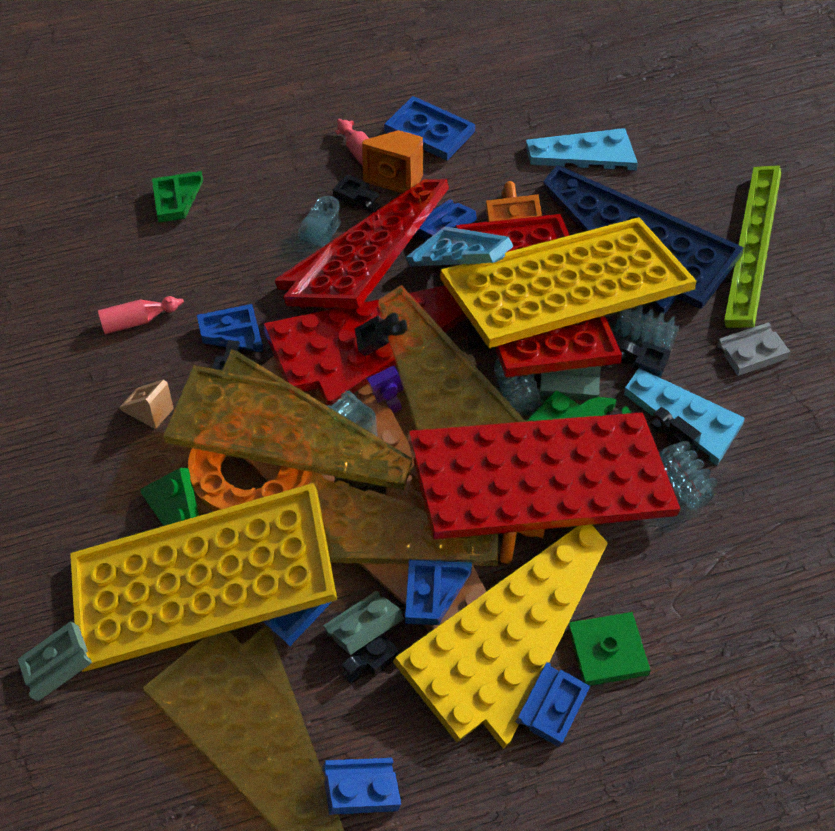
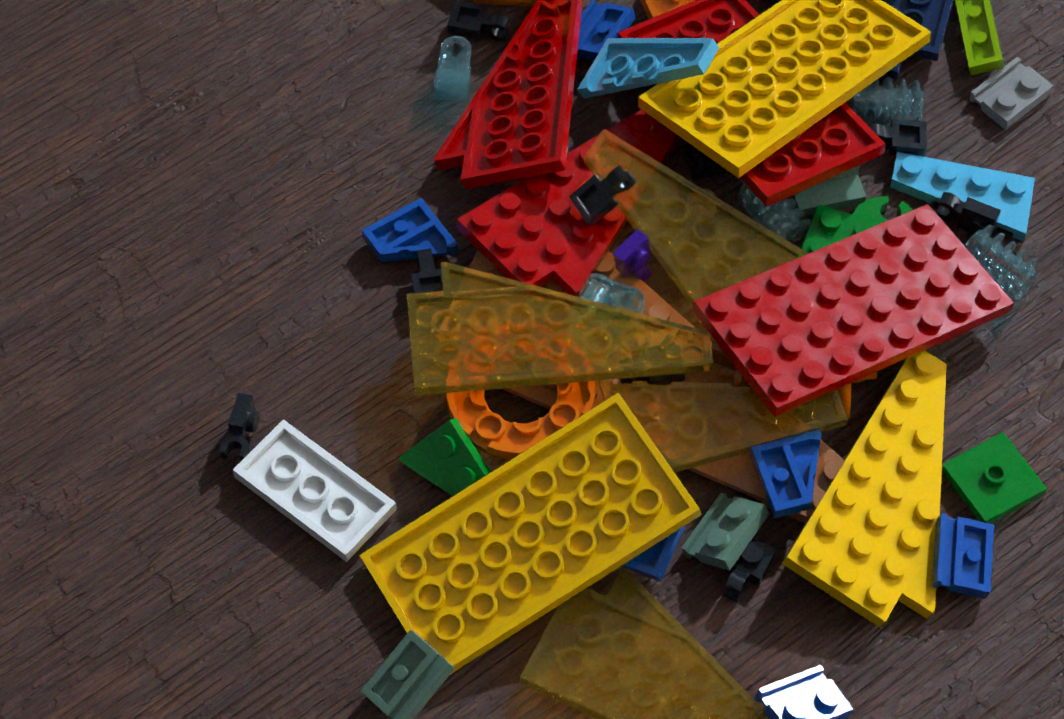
camera: 20 degrees left, 5 degrees up
(35, 431) = (241, 422): none -> black plate
(65, 495) = (315, 490): none -> white plate
(135, 313) = (282, 249): coral wheel -> none
(149, 403) = (356, 353): light nougat slope -> none
(175, 195) = (253, 83): green wing -> none

